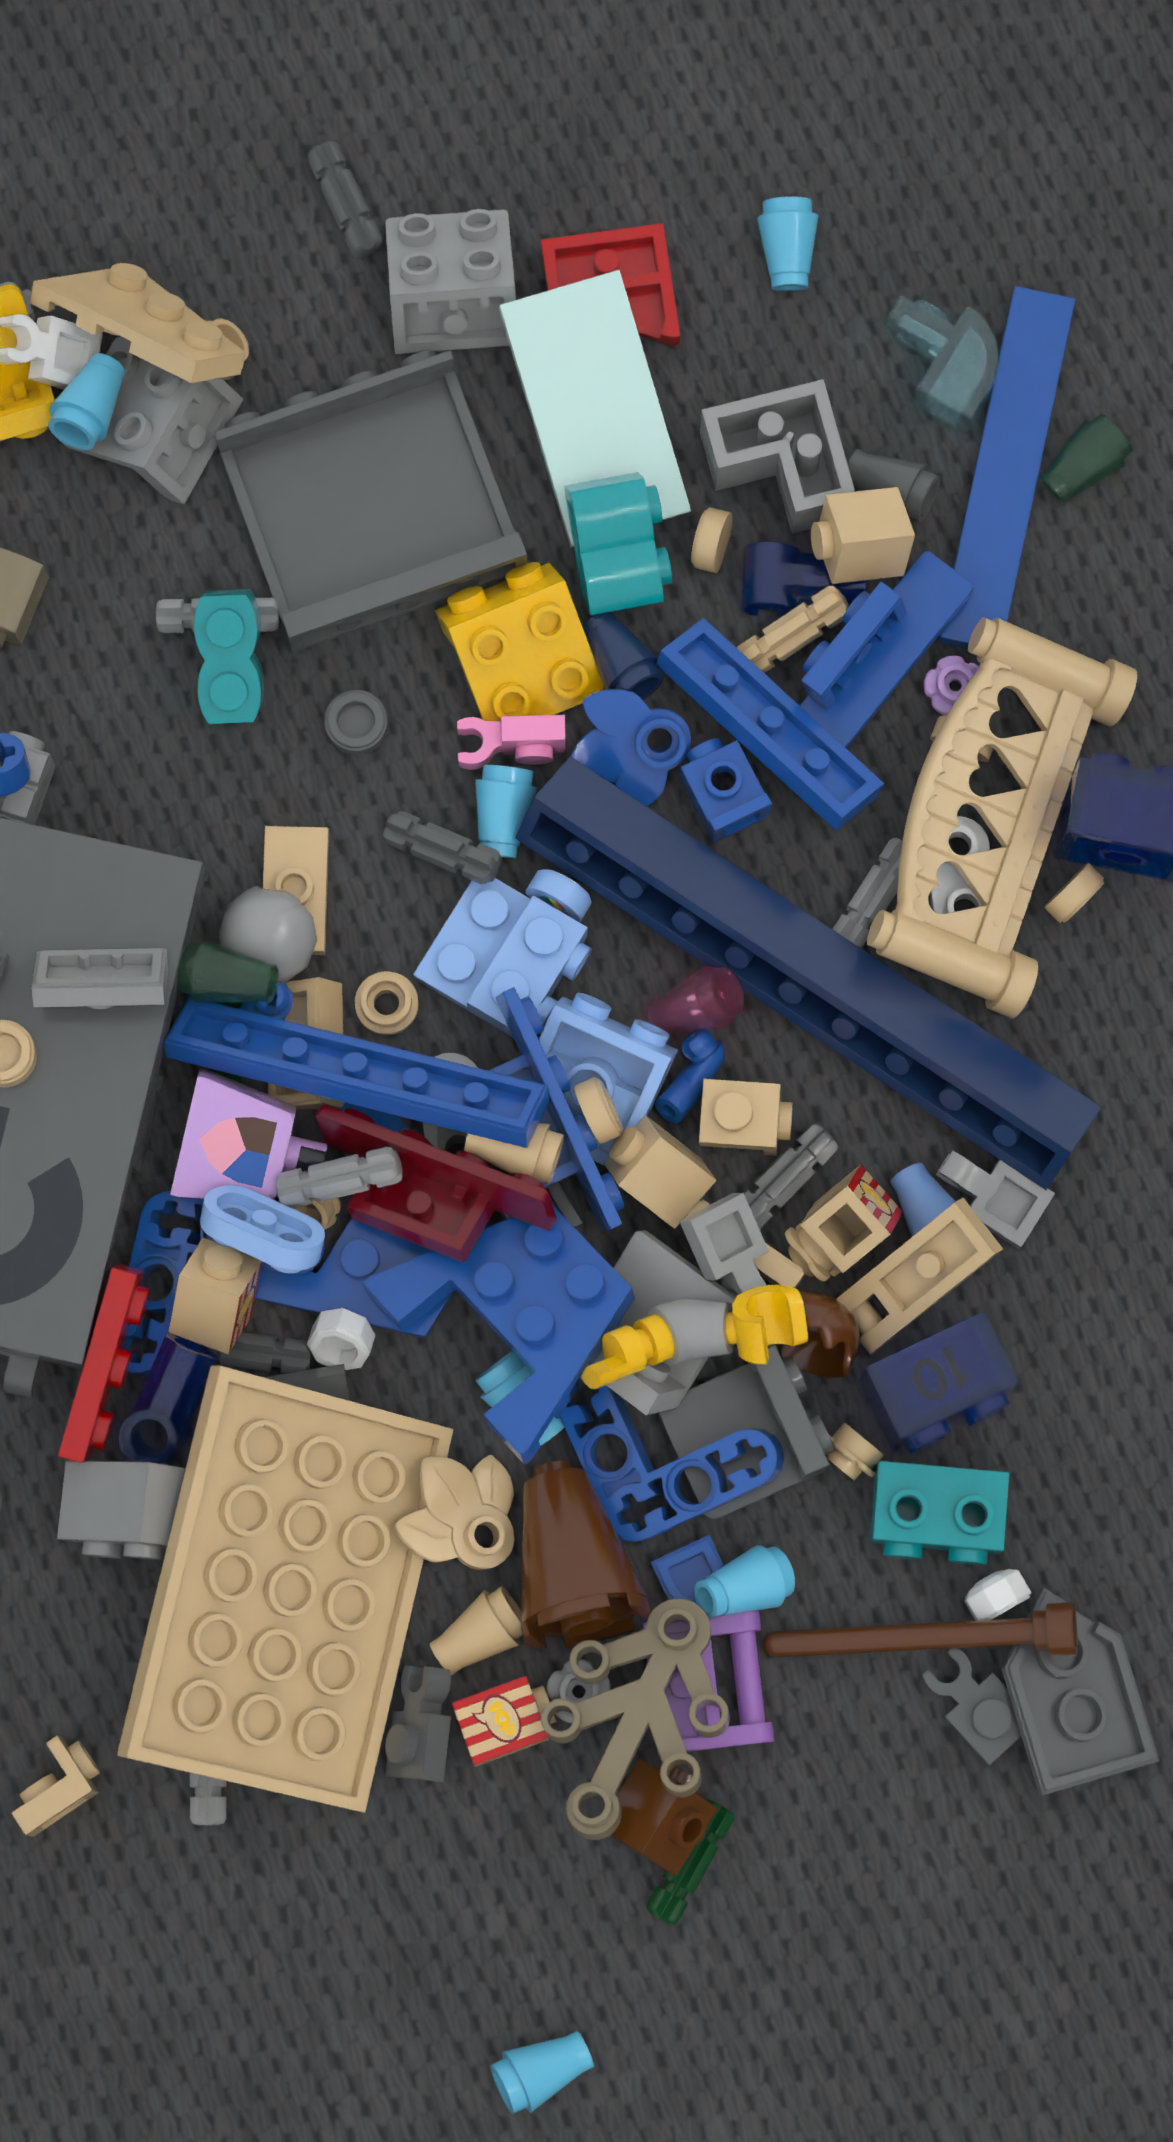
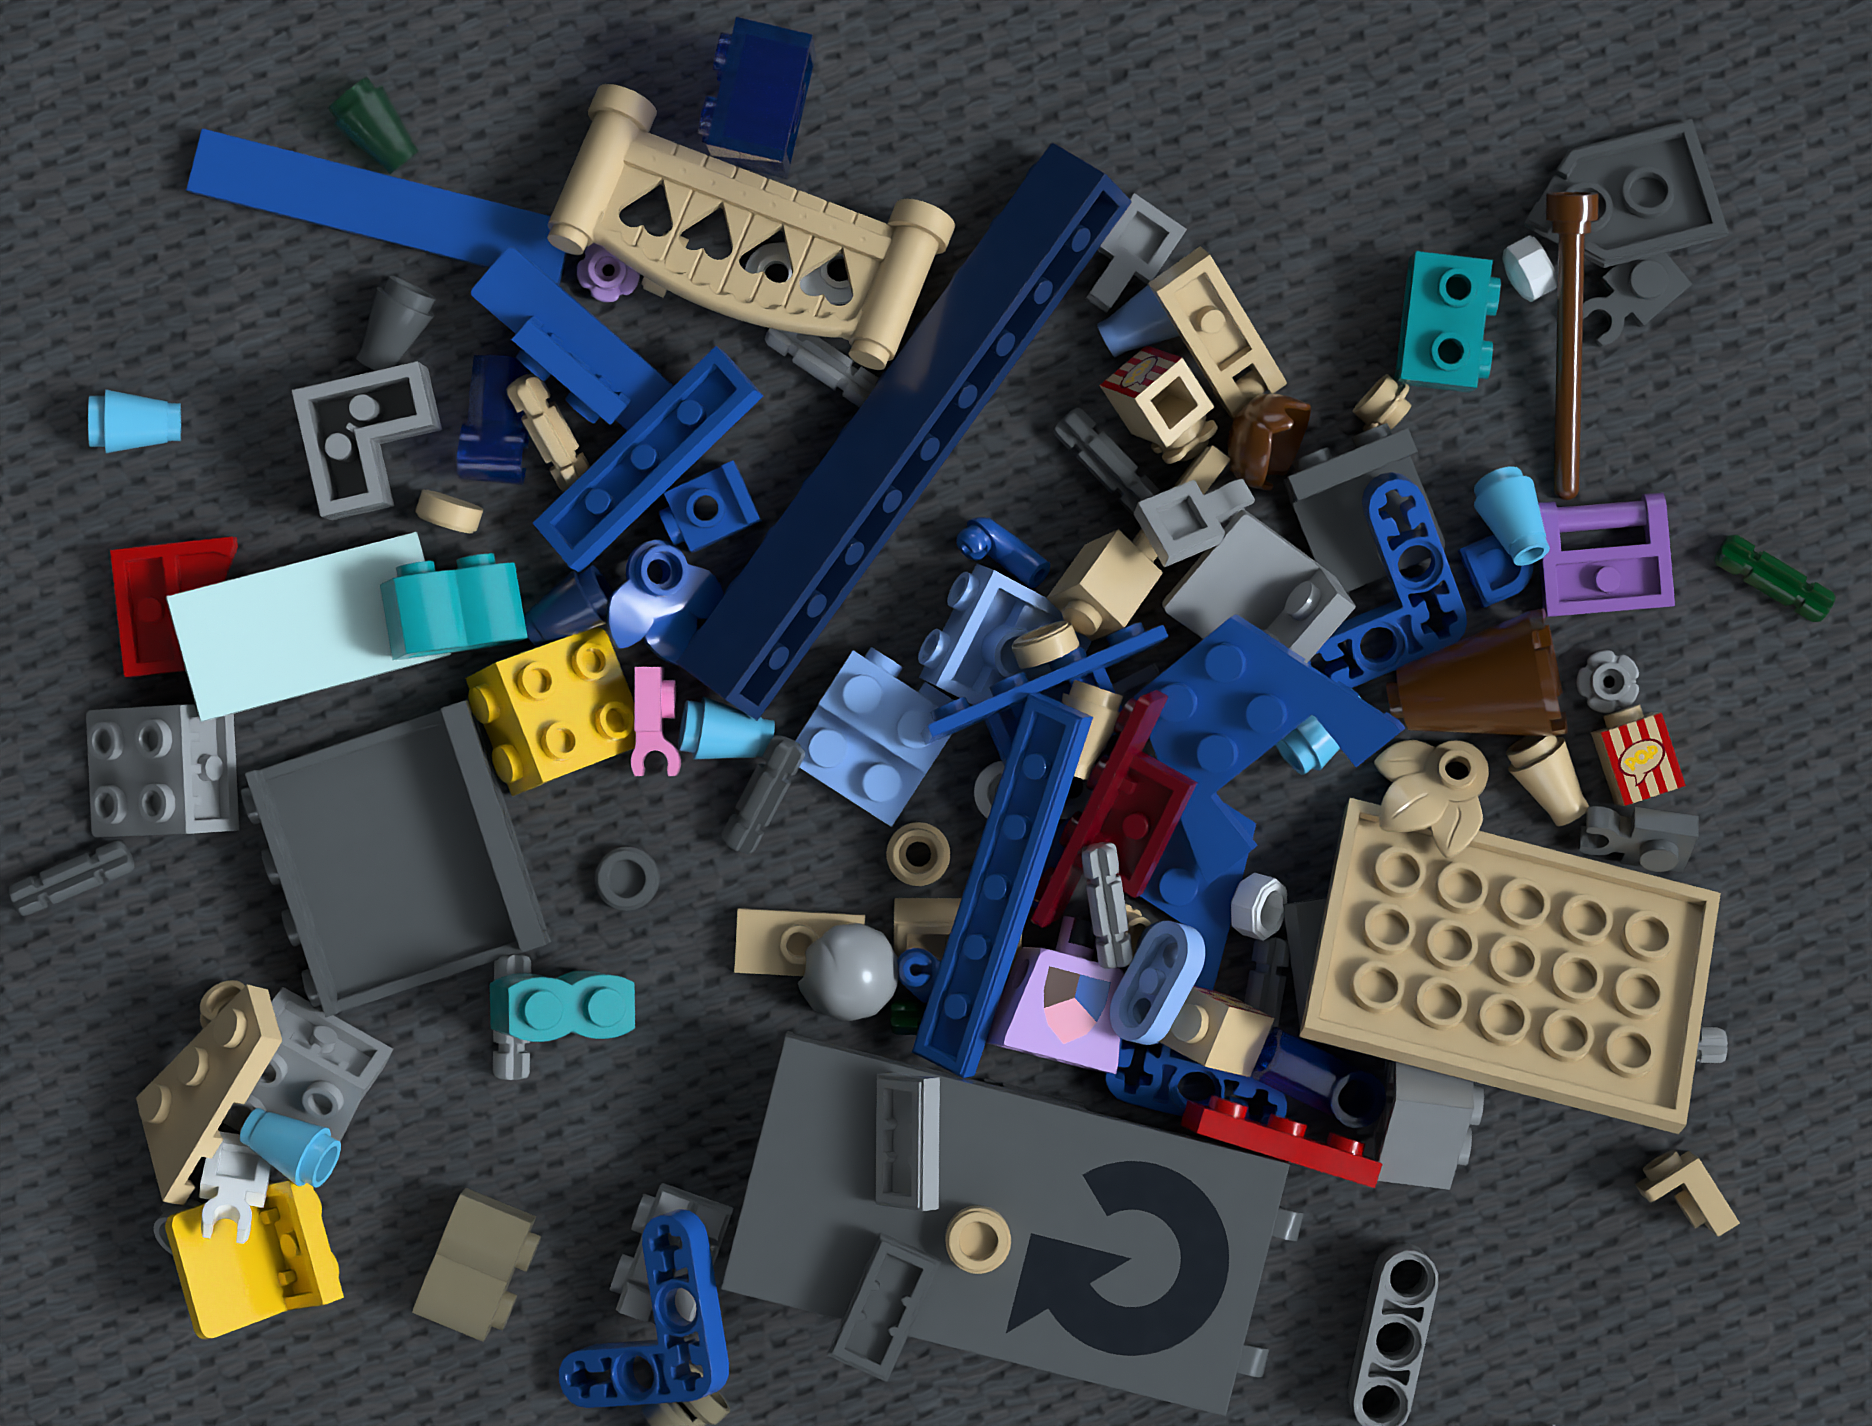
camera: 85 degrees left, 10 degrees up
(225, 975) = (896, 1015): clear green cone -> none
(560, 893) = (815, 677): light blue tile -> none
(640, 1705) = (1635, 619): dark tan plant -> none
(657, 1822) = (1735, 606): reddish brown brick -> none
(701, 1001) = (932, 539): clear pink cone -> none
(702, 1329) = (1272, 548): yellow piece -> none
(744, 1115) = (1048, 499): tan bracket -> none
(863, 535) = (457, 355): tan brick -> none
(939, 1382) = (1328, 315): clear blue brick -> none
(961, 358) = (262, 245): clear light blue brick -> none
(1075, 893) = (828, 158): tan tile -> none

